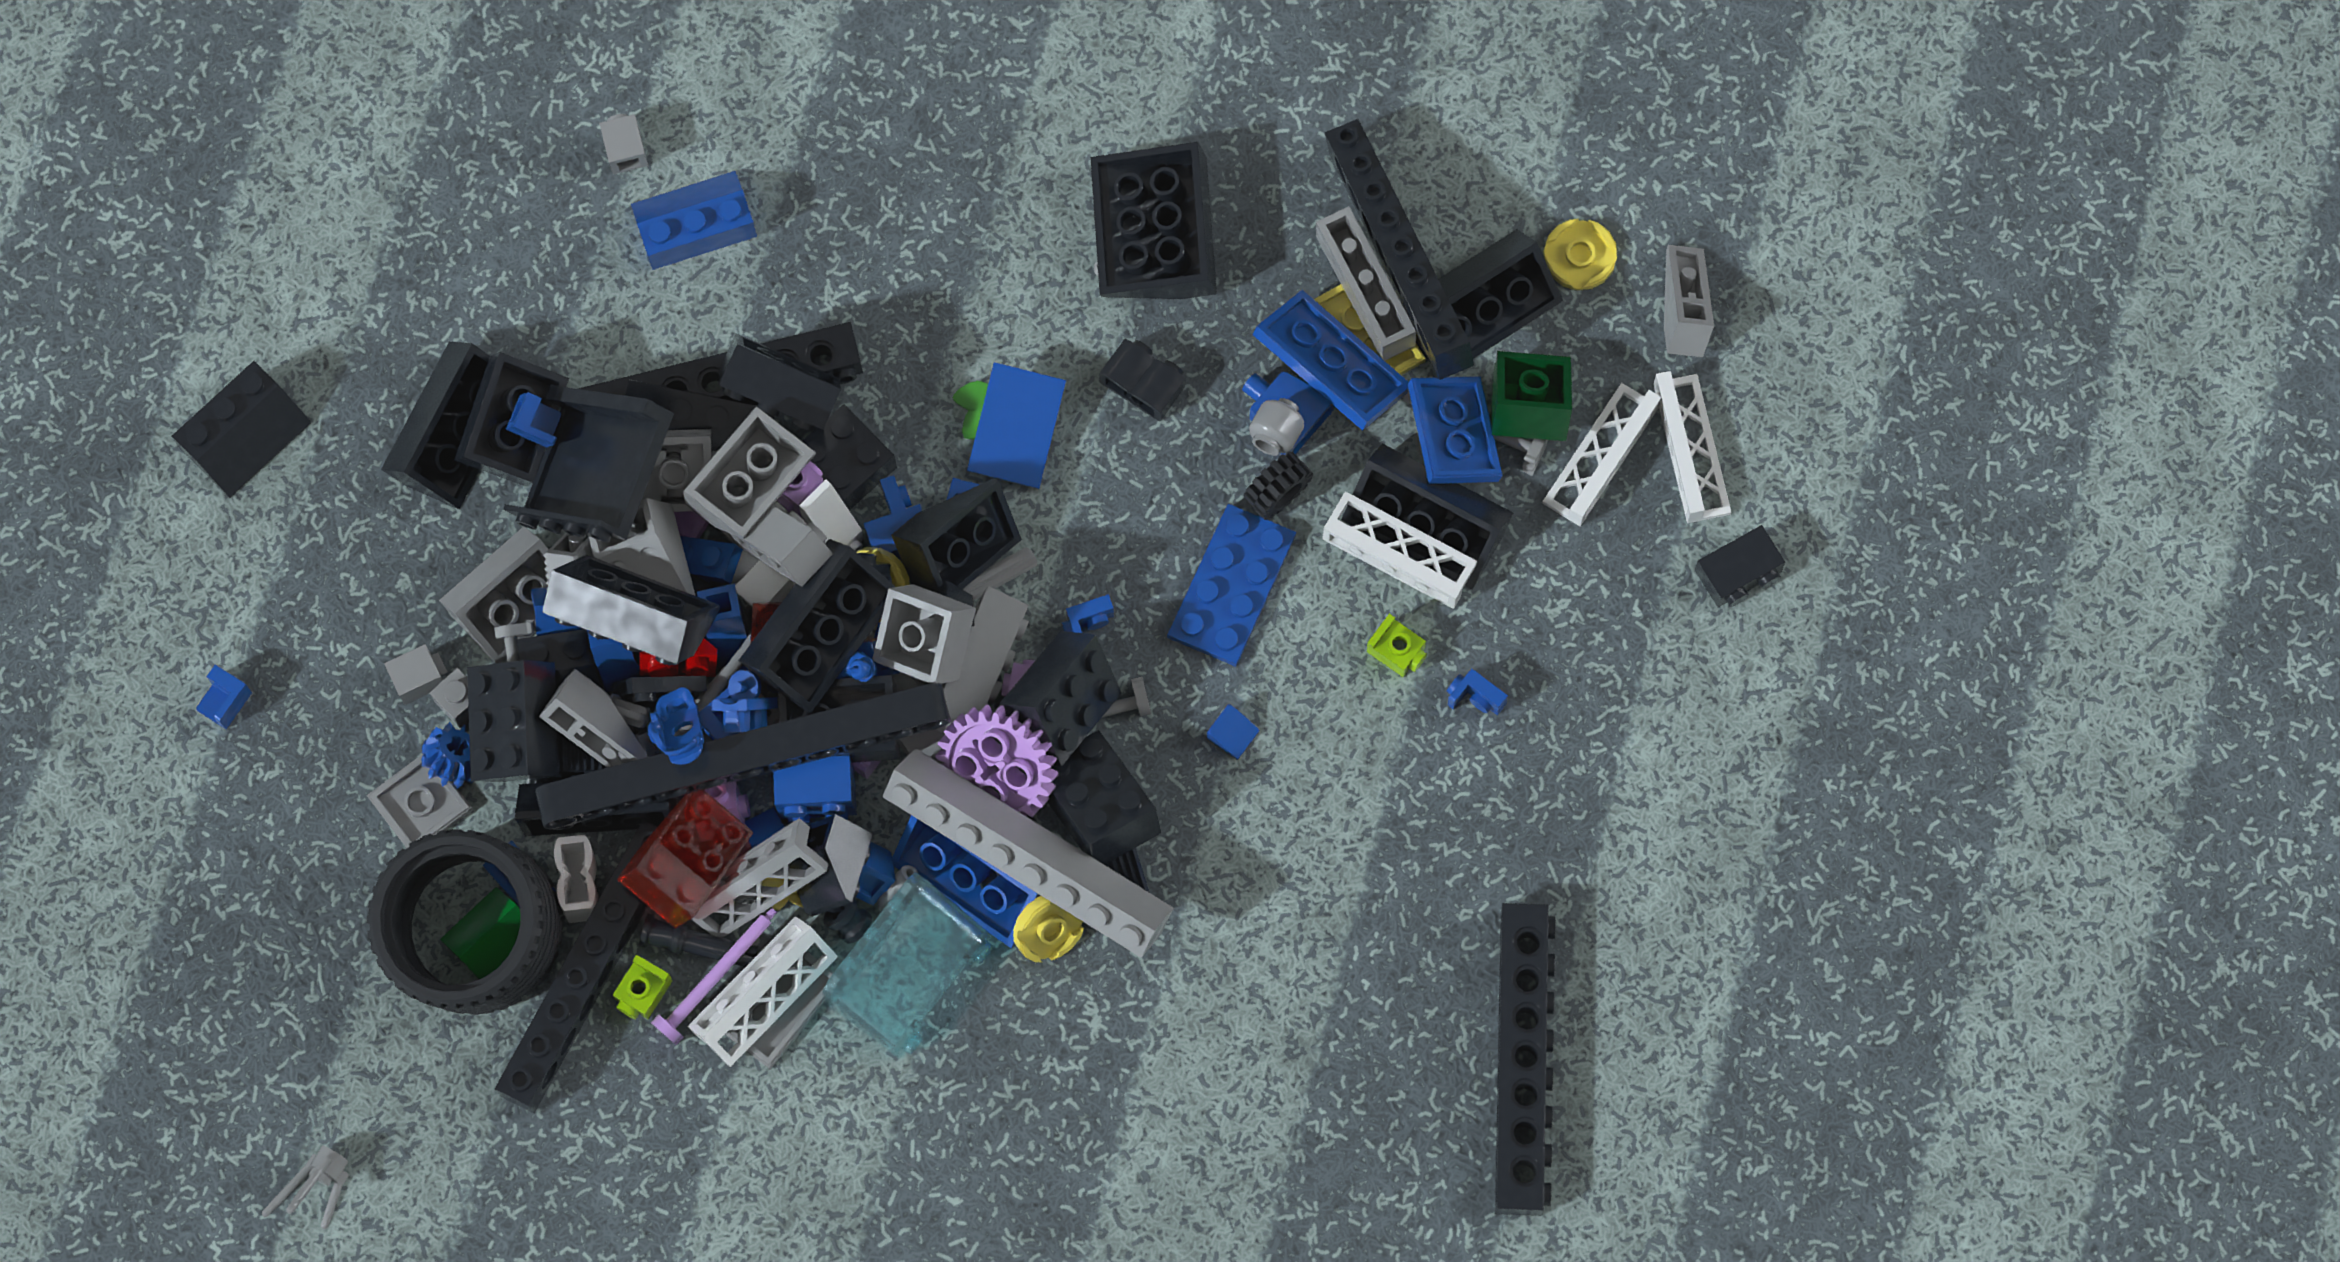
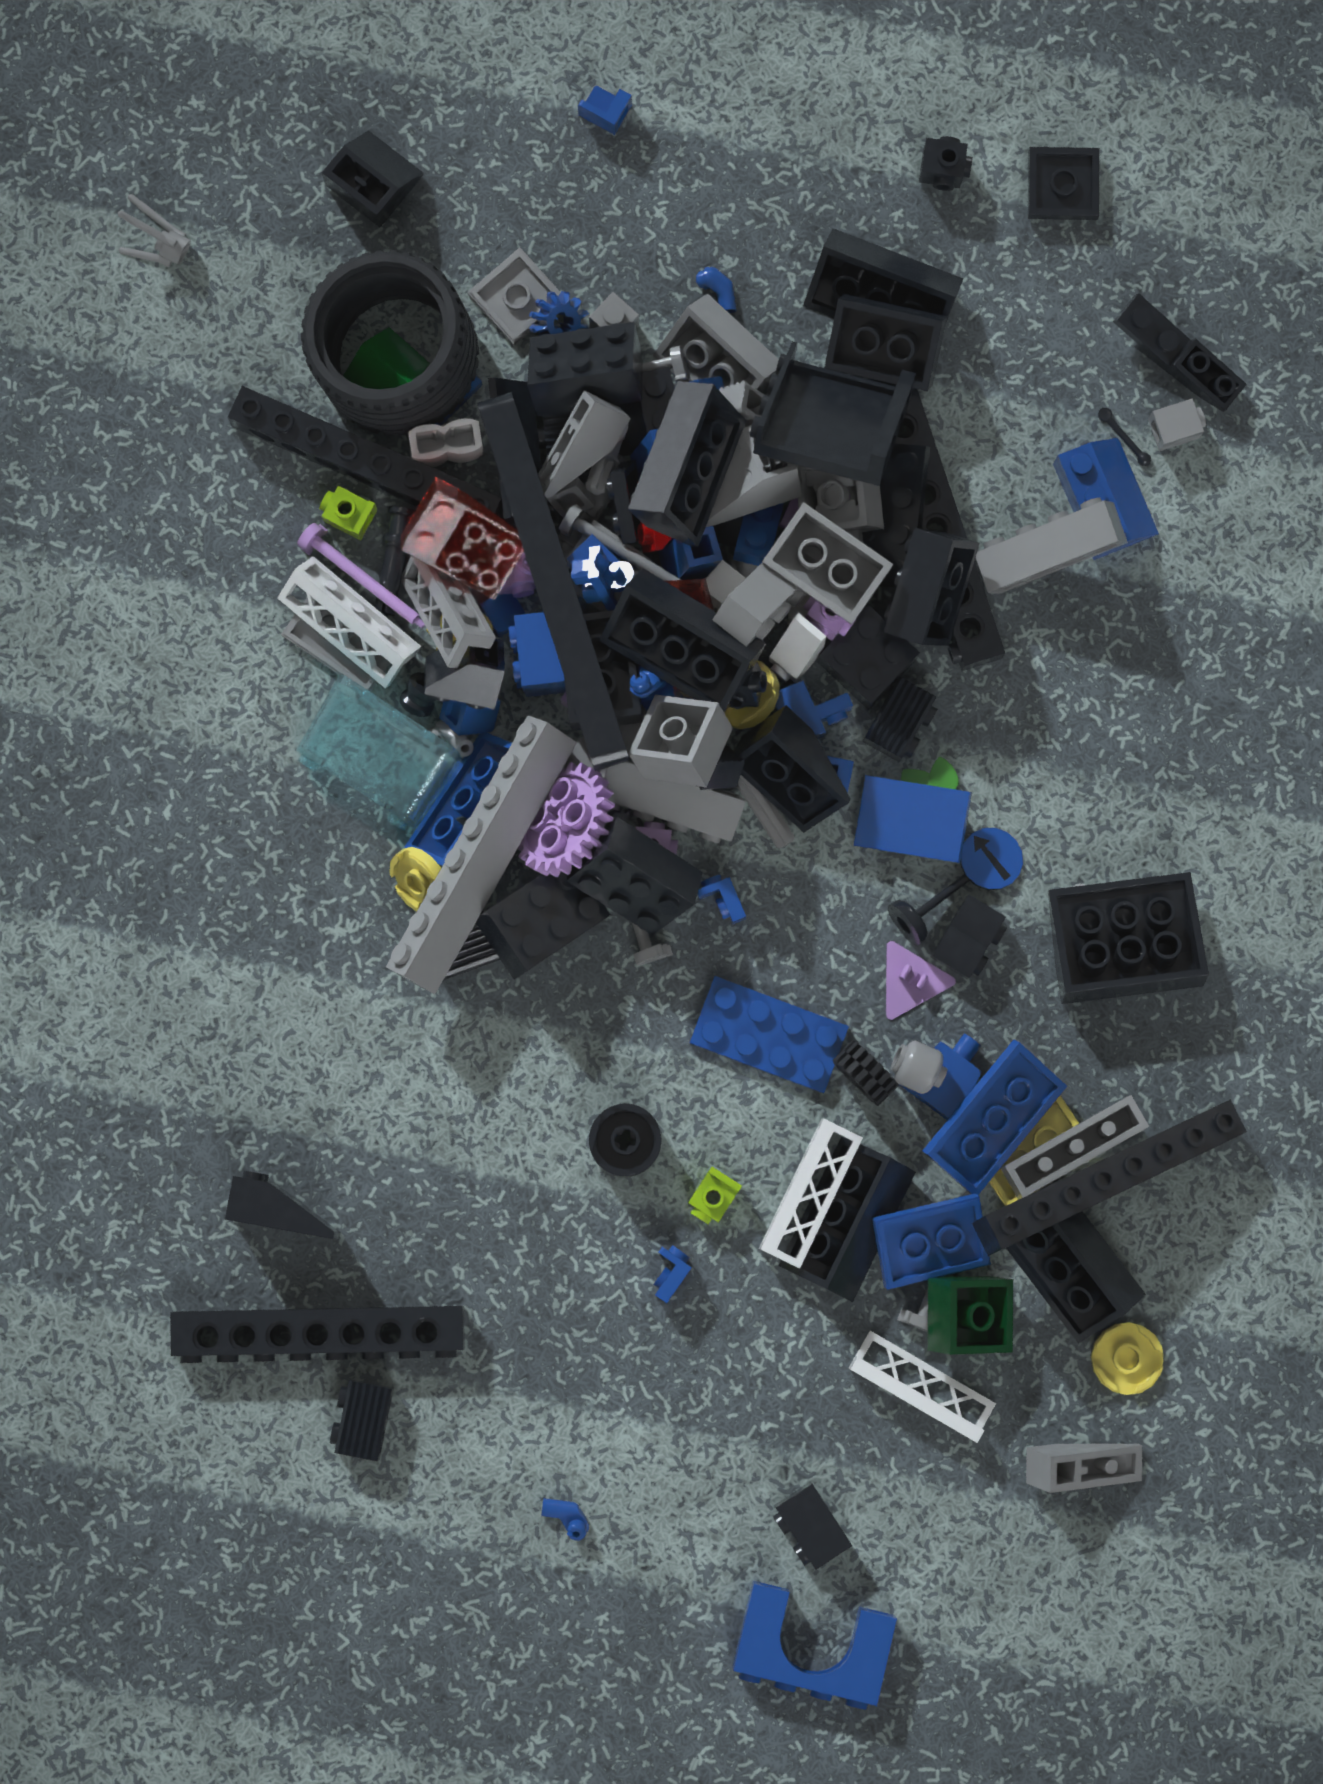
camera: 80 degrees right, 10 degrees up
(241, 429) = (865, 96): black slope -> none
(274, 946) = (371, 177): none -> black slope
(323, 353) = (945, 163): none -> black brick
(356, 239) = (1063, 183): none -> black plate
(416, 673) = (636, 280): light grey brick -> none
(428, 590) = (720, 284): none -> blue arm
(534, 420) = (879, 361): blue panel -> none
(551, 137) = (1178, 355): none -> black slope
(605, 215) = (1105, 415): none -> black hinge
(674, 712) = (594, 516): blue piece -> none
(743, 266) = (1051, 546): none -> light grey brick
(912, 433) = (900, 719): none -> black brick
(1068, 355) = (988, 860): none -> piece
(1183, 441) = (911, 980): none -> lavender piece
(1232, 732) = (622, 1043): blue slope -> none
(1319, 718) = (614, 1122): none -> black brick
(1387, 1097) = (269, 1205): none -> black slope
(1617, 1017) = (362, 1420): none -> black brick
(1679, 447) = (931, 1462): white fence -> none
(1722, 811) = (569, 1514): none -> blue arm
(1868, 622) = (855, 1677): none -> blue arch

